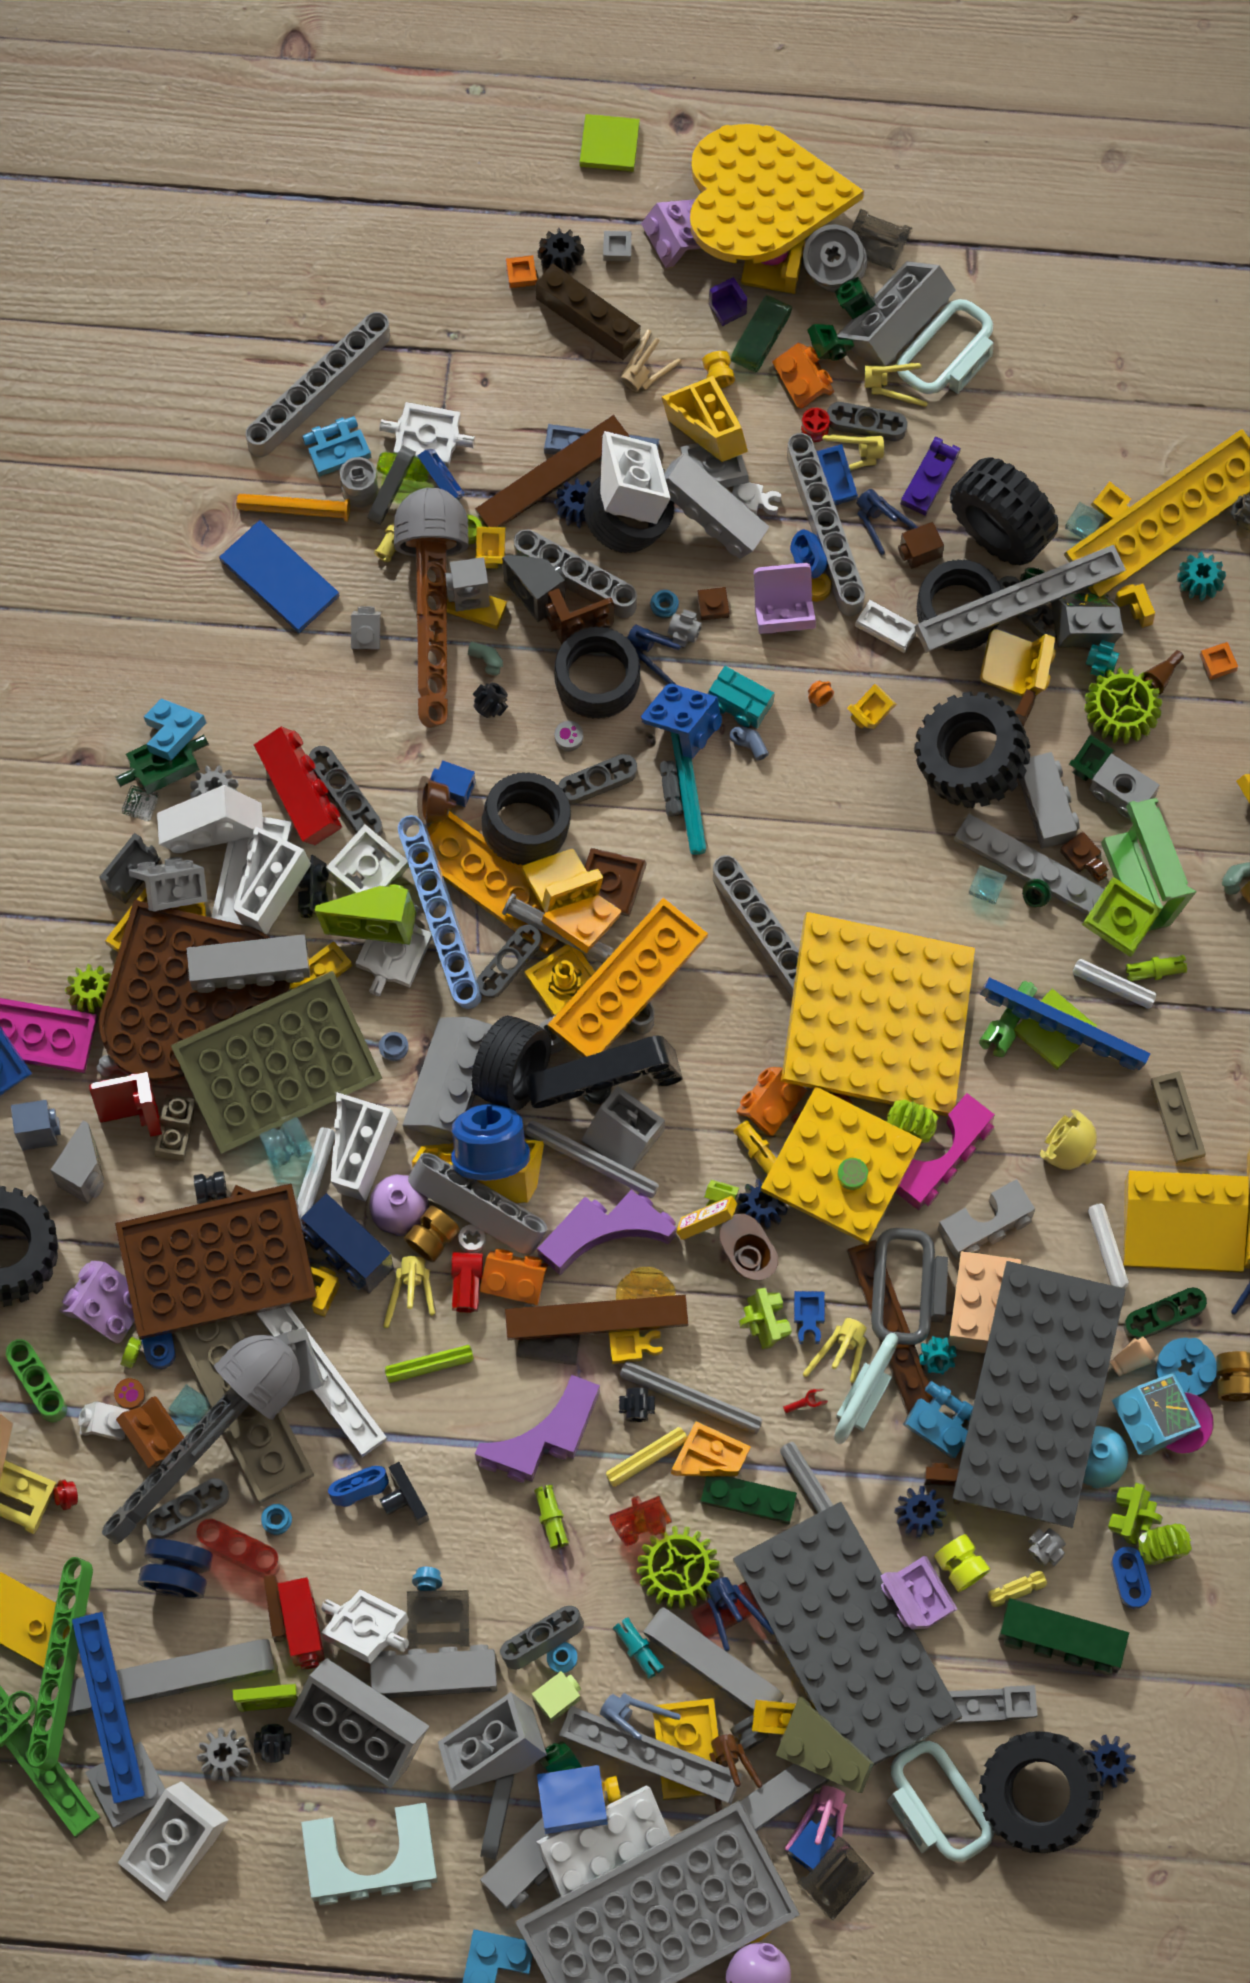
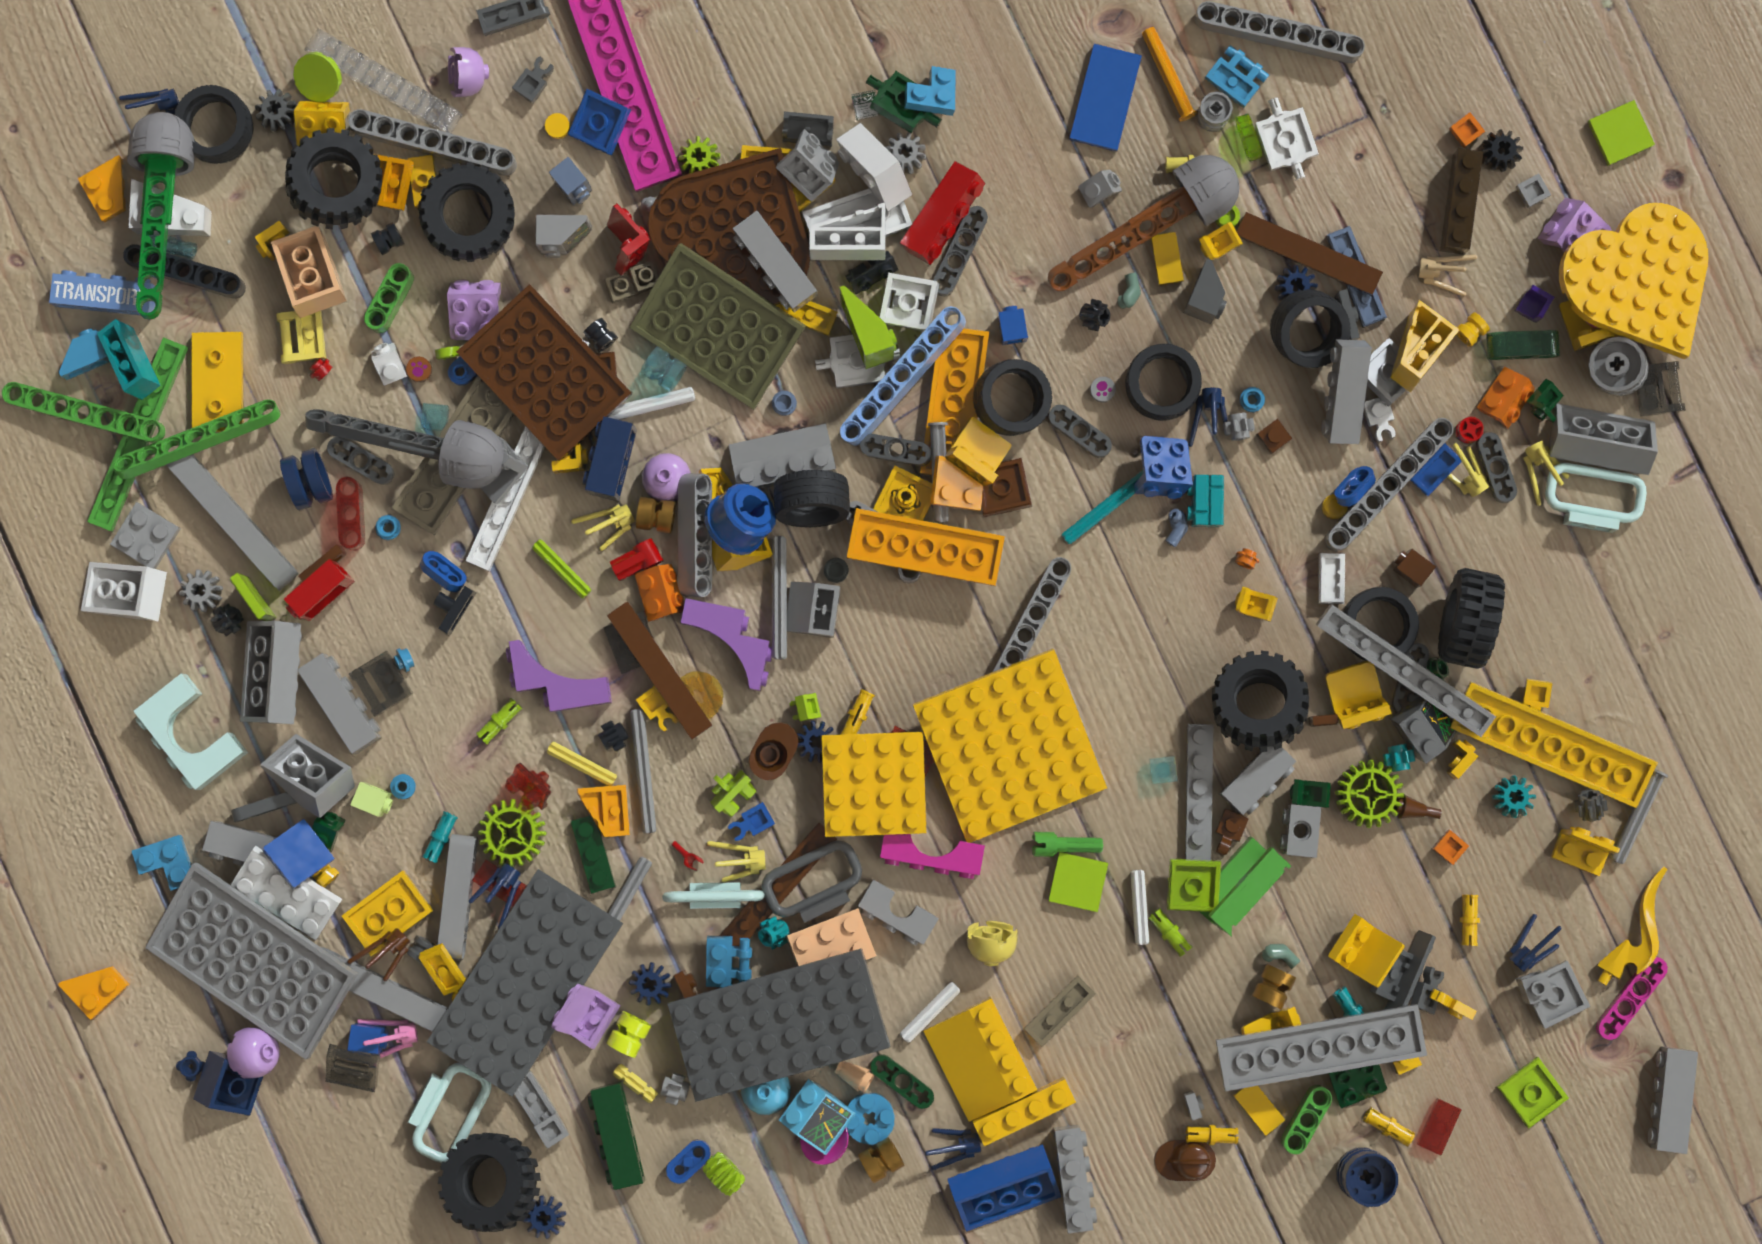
camera: 65 degrees right, 15 degrees up
(108, 1707) = (182, 492): blue plate -> none
(151, 1431) = (396, 402): dark orange bracket -> none
(360, 1144) = (690, 424): white wedge -> none
(364, 1626) = (342, 636): white plate -> none
(391, 485) = (1224, 138): dark grey beam -> none
(433, 801) = (986, 322): reddish brown piece -> none
(440, 473) = (1253, 170): blue tile -> none
(468, 584) = (1173, 244): light grey brick -> none
(473, 1230) = (664, 549): white bush -> none
(564, 1632) = (410, 774): dark grey beam -> none
(567, 623) = (1185, 340): reddish brown bracket -> none
(590, 575) = (1241, 307): light grey beam -> none
(605, 1069) = (843, 572): black beam -> none
(618, 1711) = (384, 849): sand blue plant -> none
(632, 478) = (1328, 319): white slope -> none
(649, 1754) = (364, 888): light grey plate -> none
(670, 788) = (1104, 490): dark grey axle -> none
(706, 1218) = (779, 707): yellow tile -> none
(770, 1100) = (896, 700): orange bracket -> none
(784, 598) = (1304, 489): lavender bracket -> none
(820, 1748) = (430, 1011): olive wing -> none
(852, 1173) = (867, 797): bright green tile -> none
(854, 298) = (1594, 400): dark green bracket -> none
(874, 505) = (1427, 513): dark blue plant -> none
(913, 1119) = (940, 816): lime gear -> none
(930, 476) = (1477, 542): dark purple plate -> none
(1033, 899) = (1177, 810): dark green plate -> none
(1074, 1029) = (1078, 878): blue plate -> none
(1084, 521) = (1508, 681): clear light blue plate -> none
(1139, 1515) = (725, 1140): lime hips -> none

